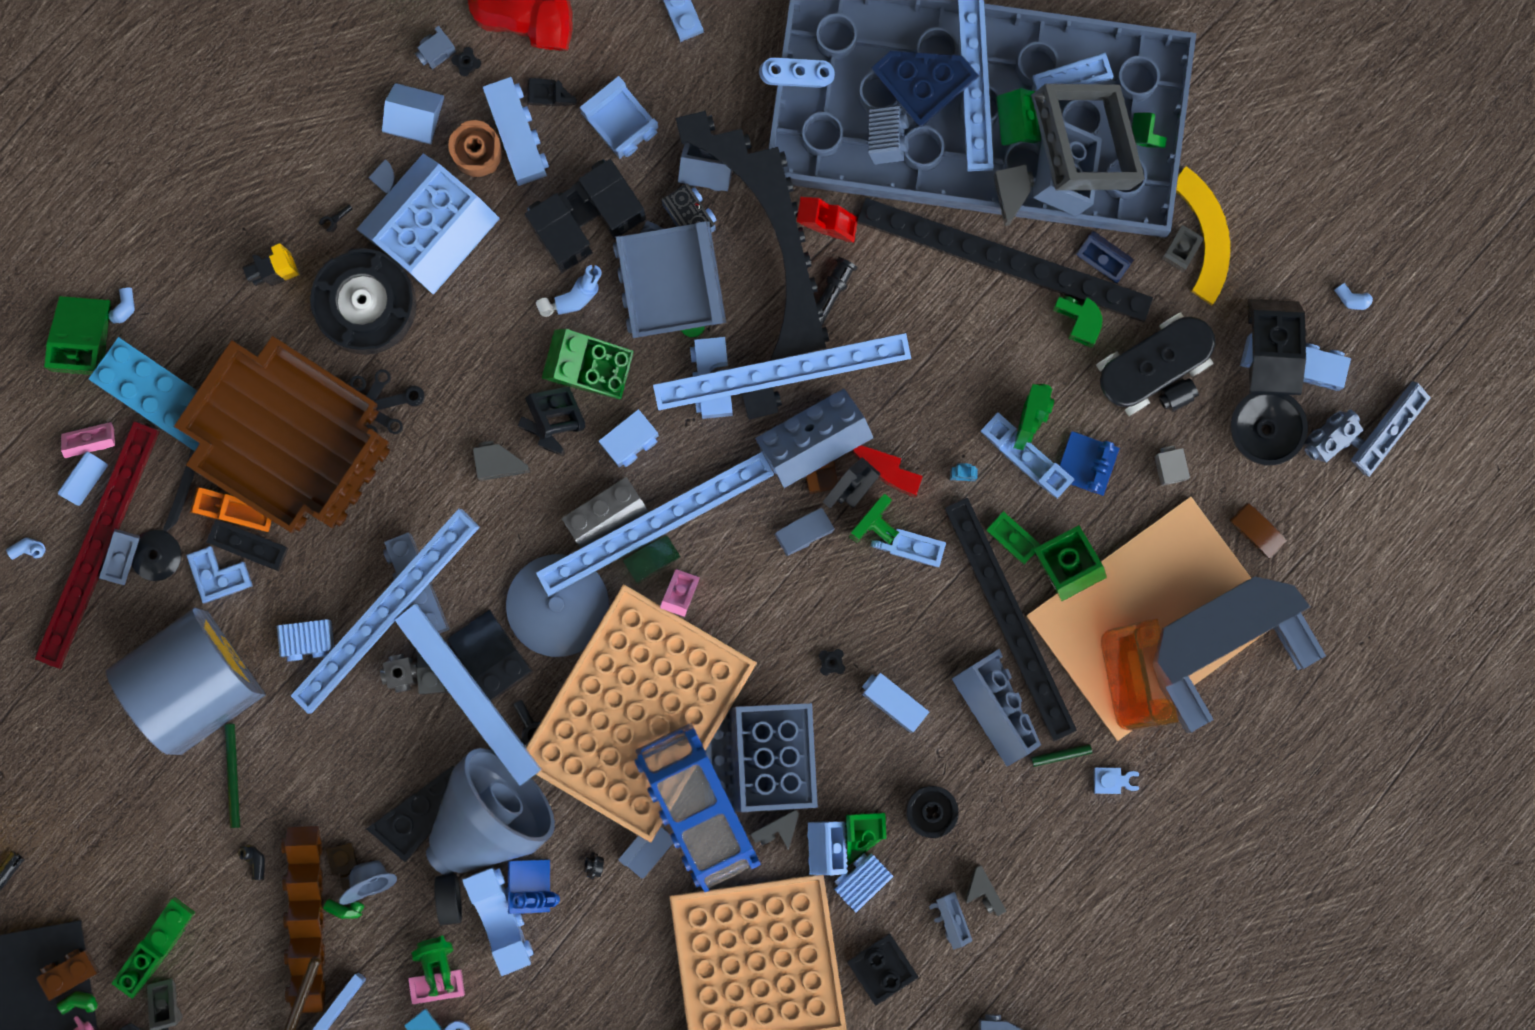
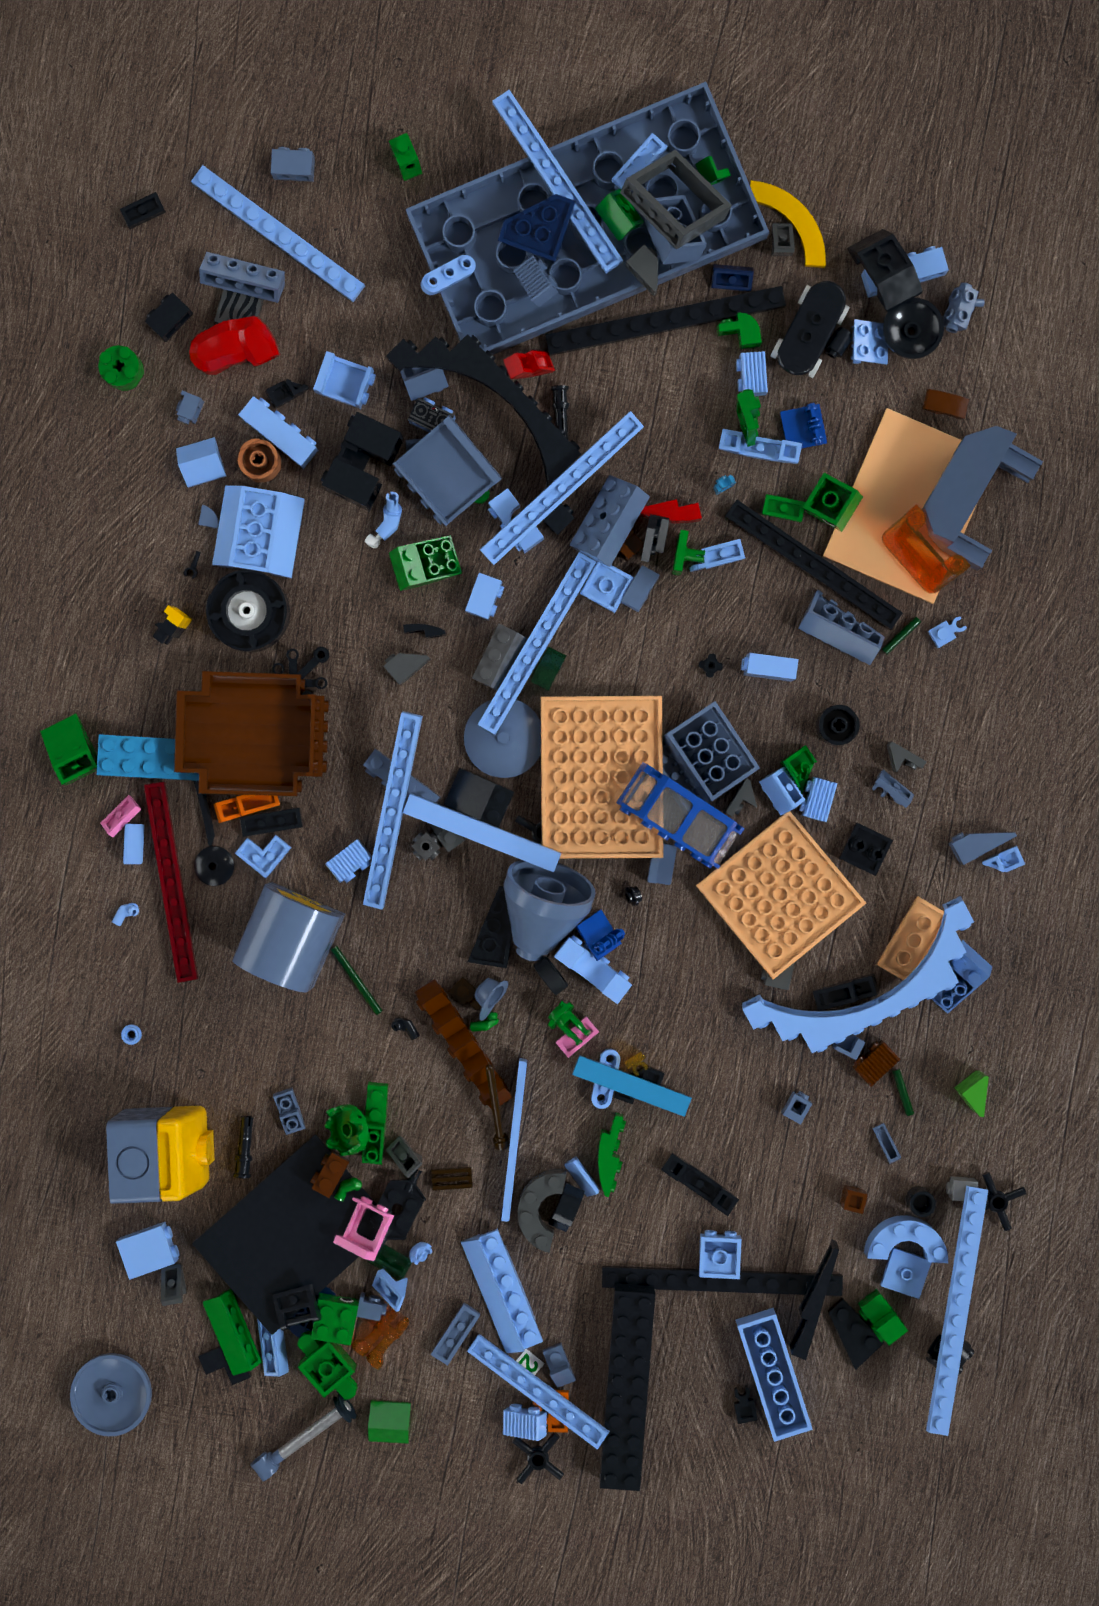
camera: 30 degrees left, 5 degrees up
(68, 877) = (289, 1111): none -> sand blue slope
(107, 944) = (342, 1139): none -> green plate
(119, 557) = (191, 881): sand blue plate -> none
(123, 309) = (89, 712): light blue arm -> none
(466, 69) = (213, 398): black plate -> none
(554, 404) = (419, 603): black plate -> none
(680, 592) = (581, 680): bright pink plate -> none
(769, 507) = (606, 586): none -> light blue plate
(1066, 371) = (752, 372): none -> light blue brick
(1171, 466) = (862, 394): light grey brick -> none
(1212, 414) = (868, 343): none -> light blue hinge
(1353, 300) = (918, 206): light blue arm -> none
(1390, 428) = (996, 279): sand blue plate -> none

